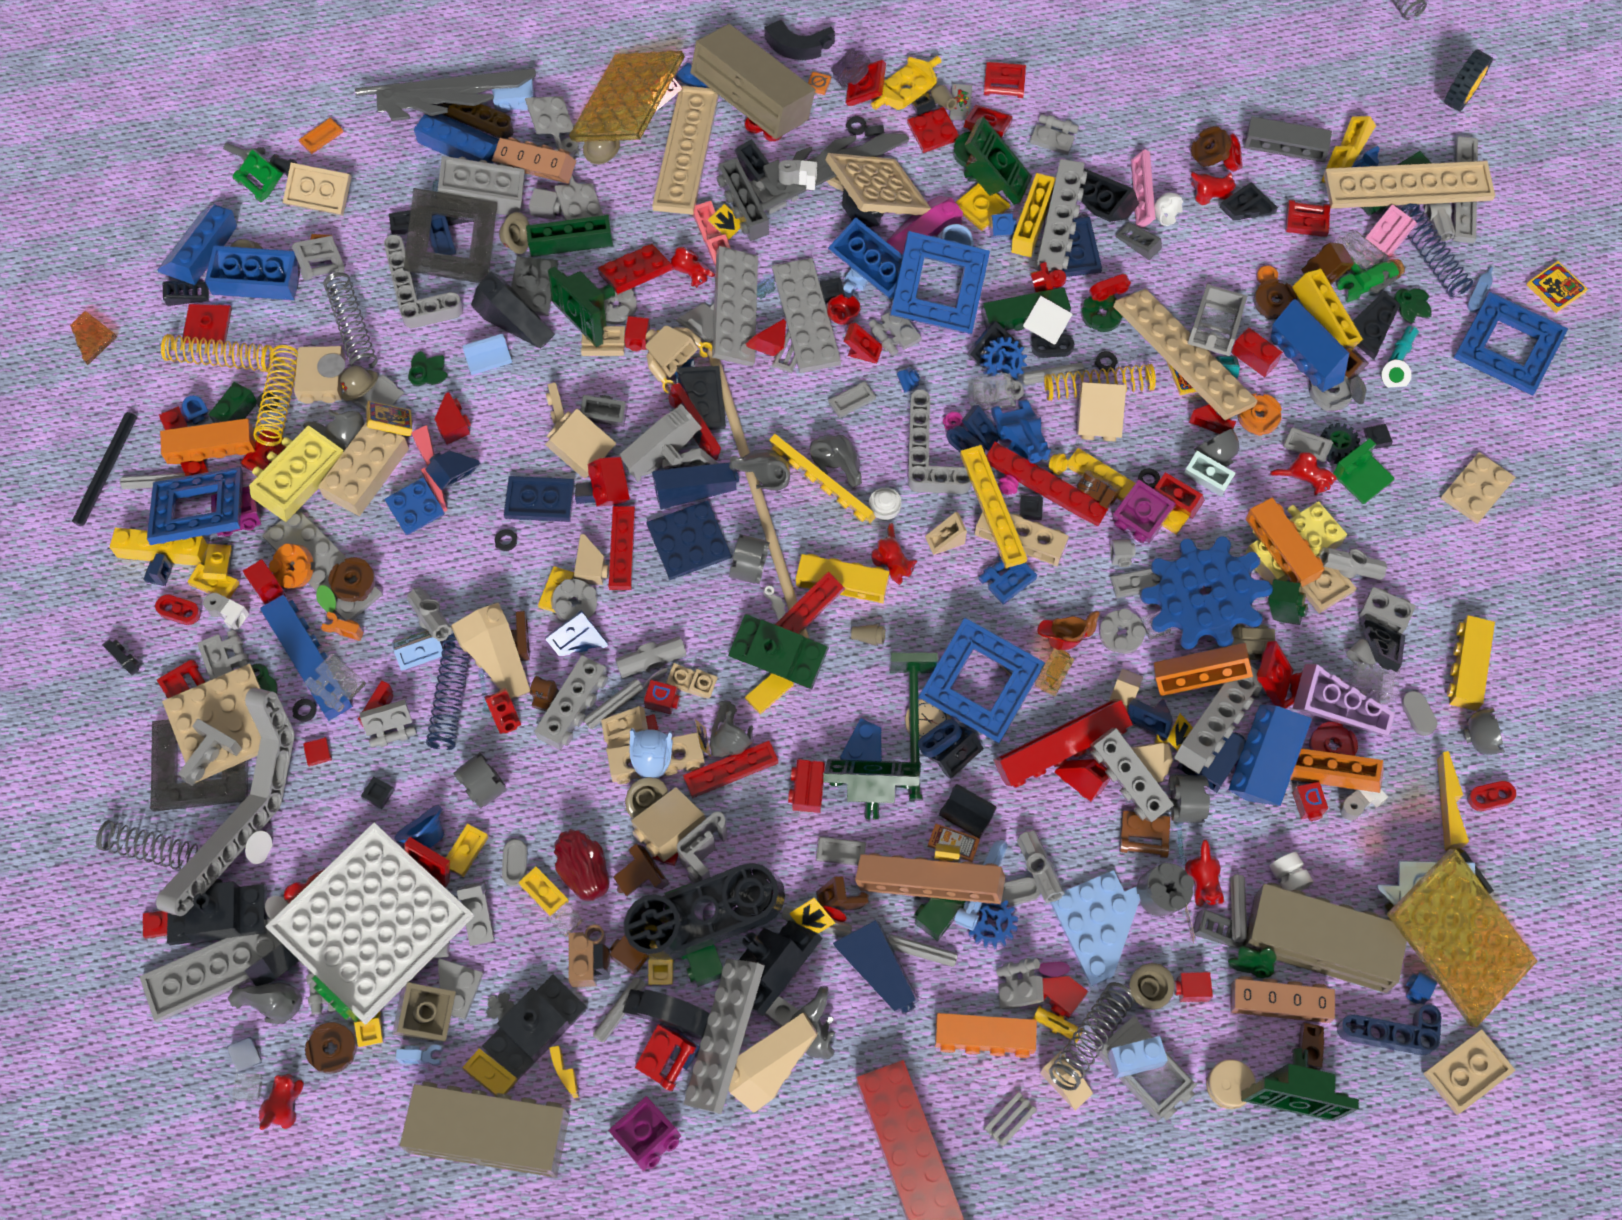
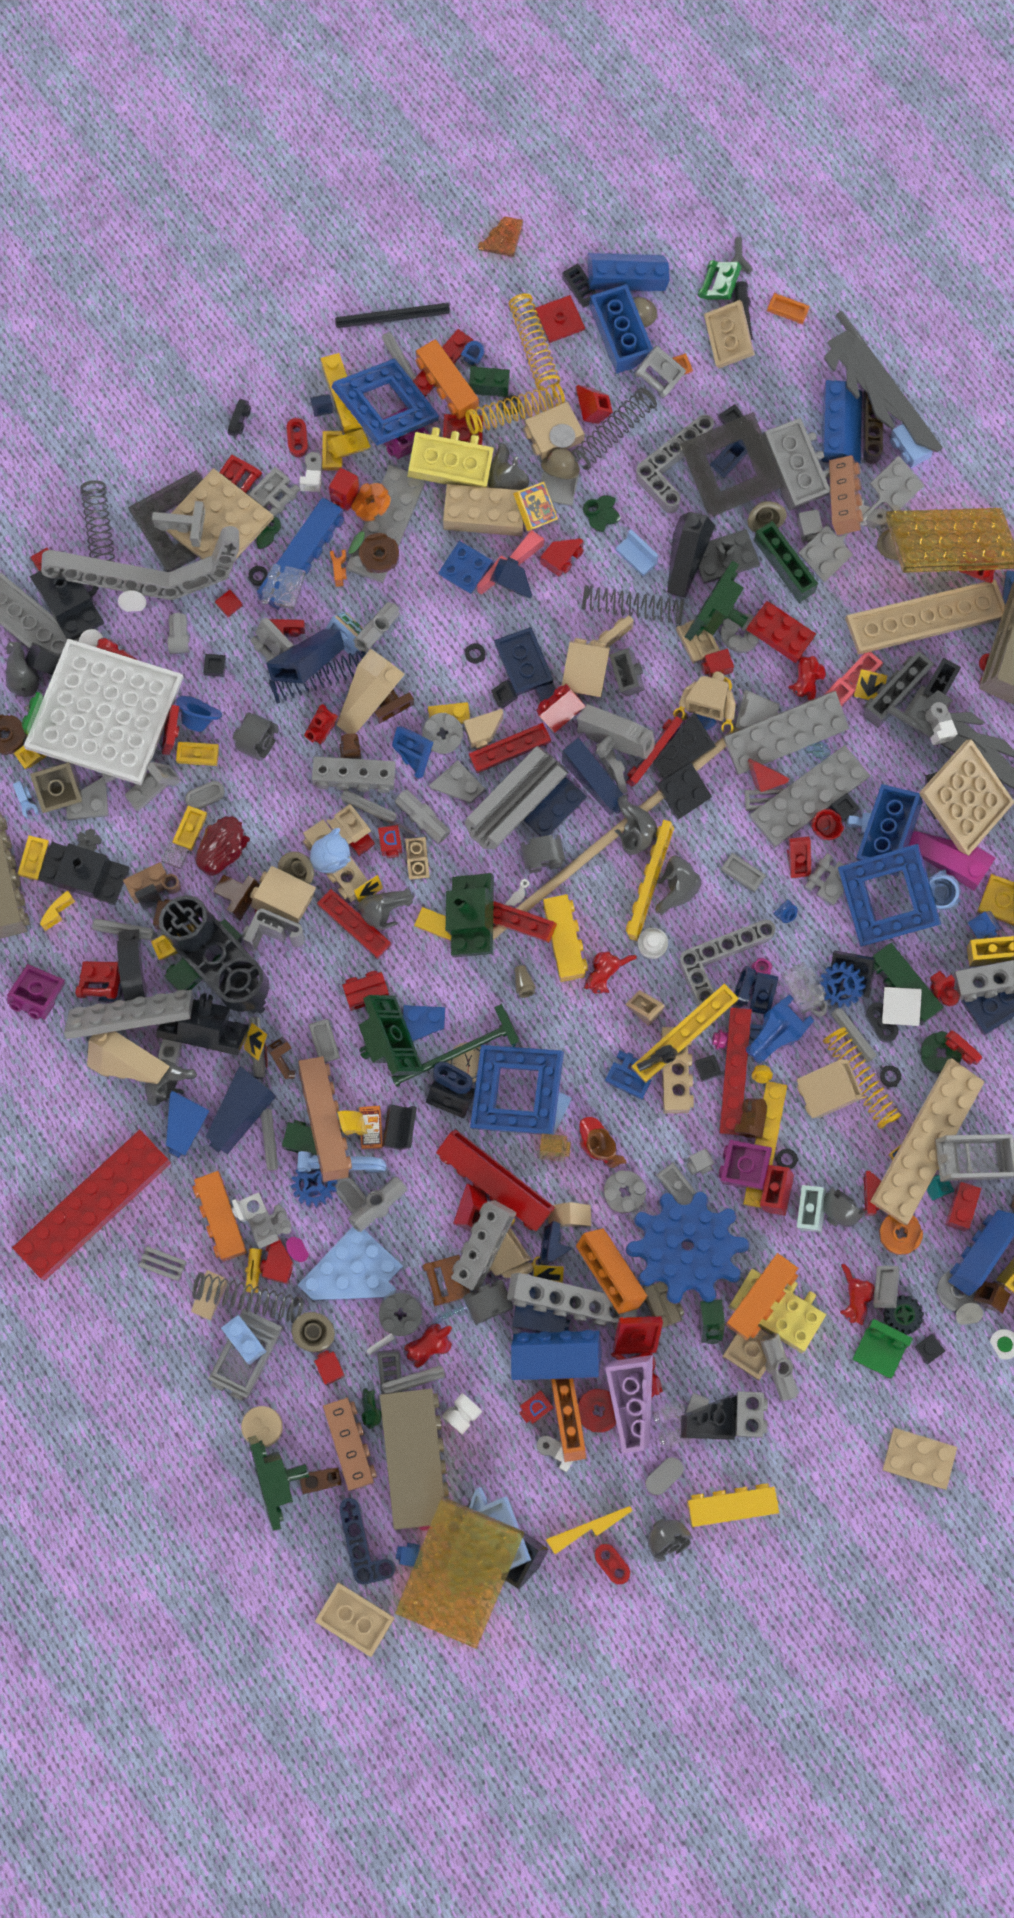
camera: 65 degrees right, 10 degrees up
(316, 327) = (593, 404): none -> red slope
(324, 816) = (178, 637): none -> light grey piece
(425, 693) = (306, 658): none -> dark blue slope
(500, 415) = (588, 591): none -> dark grey piece
(564, 529) = (504, 694): none -> black plate
(633, 610) = (458, 783): none -> light grey wing
(682, 560) = (515, 798): none -> light grey piece
(747, 413) = (683, 790): none -> black plate
(868, 1031) = (184, 1124): none -> blue slope
(992, 1009) = (240, 1207): none -> white bracket
(1011, 526) = (665, 1054): none -> black plate

